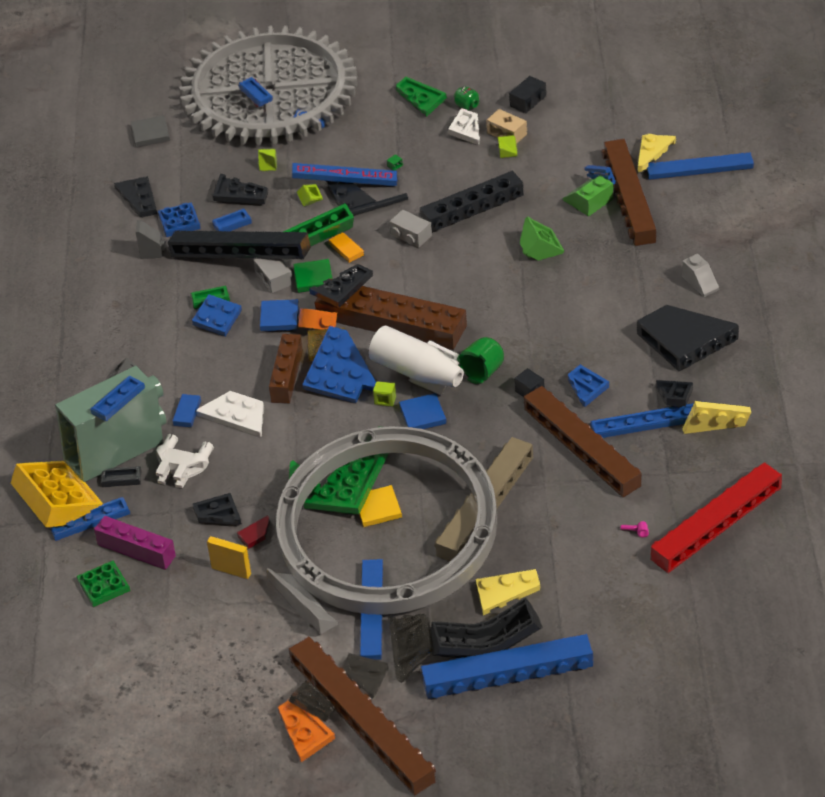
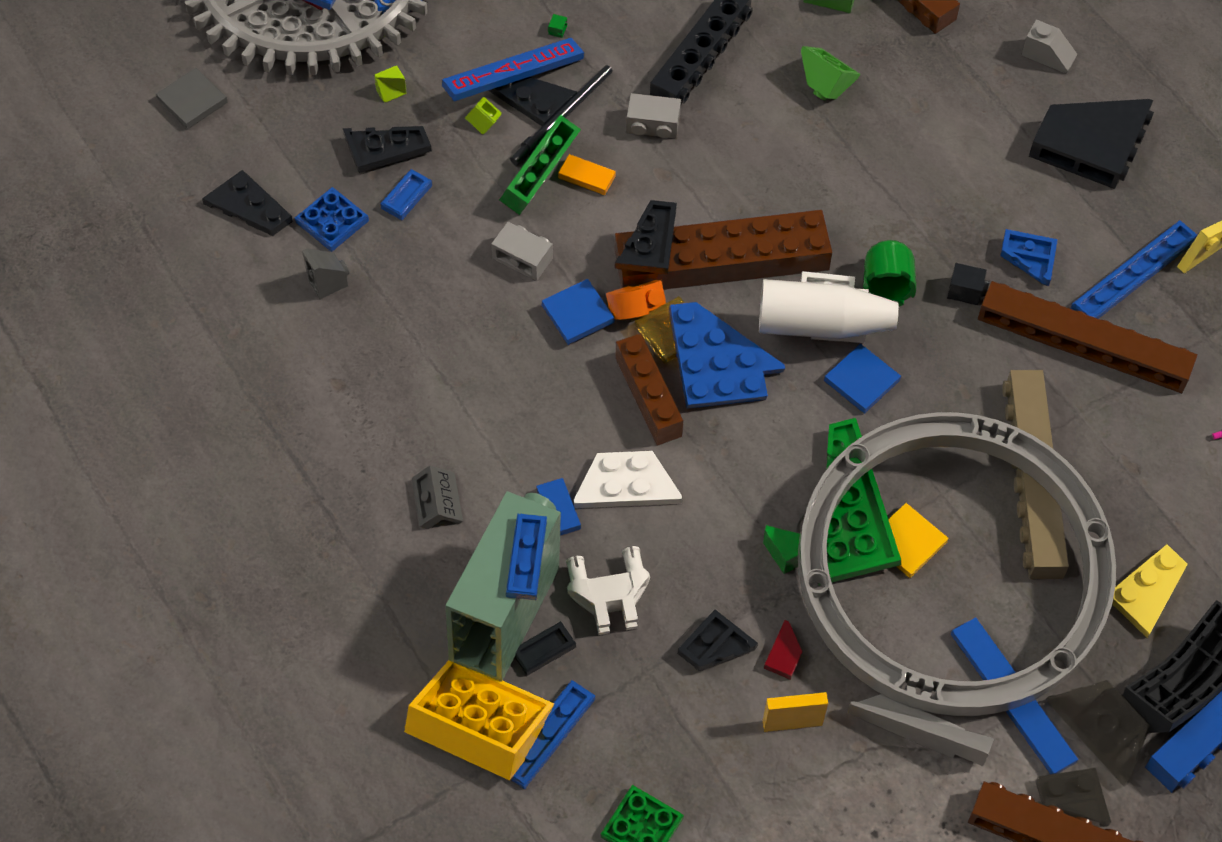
camera: 35 degrees left, 15 degrees up
(135, 542) = (646, 745): magenta brick -> none
(200, 296) = (461, 321): green tile -> none
(216, 315) = (494, 346): blue plate -> none
(239, 244) = (457, 230): black brick -> none
(312, 274) = (575, 233): green tile -> none
(384, 394) = (801, 372): lime slope -> none
(674, 392) = (1142, 222): black wing -> none

